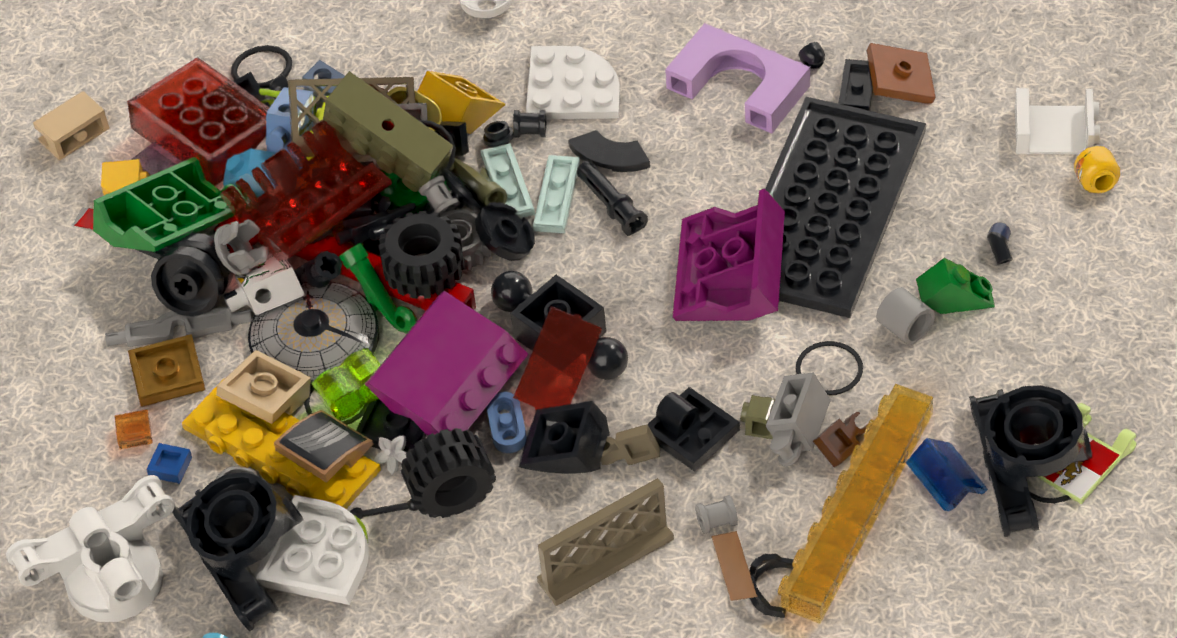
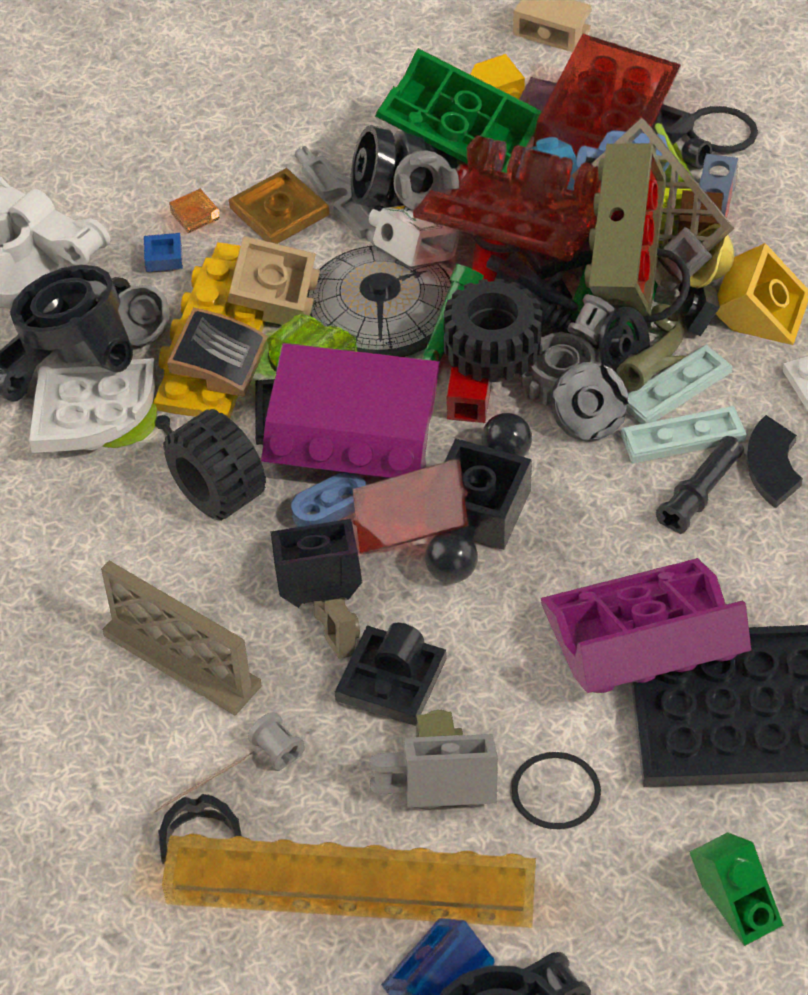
camera: 65 degrees right, 0 degrees up
(319, 270) = (447, 258): black connector -> none
(392, 452) = (249, 416): white plant -> none
(497, 134) = (737, 350): black plate -> none
(529, 123) = (768, 371): black bush -> none
(839, 439) = (436, 830): reddish brown plate -> none
(905, 315) = (662, 840): light grey piece -> none

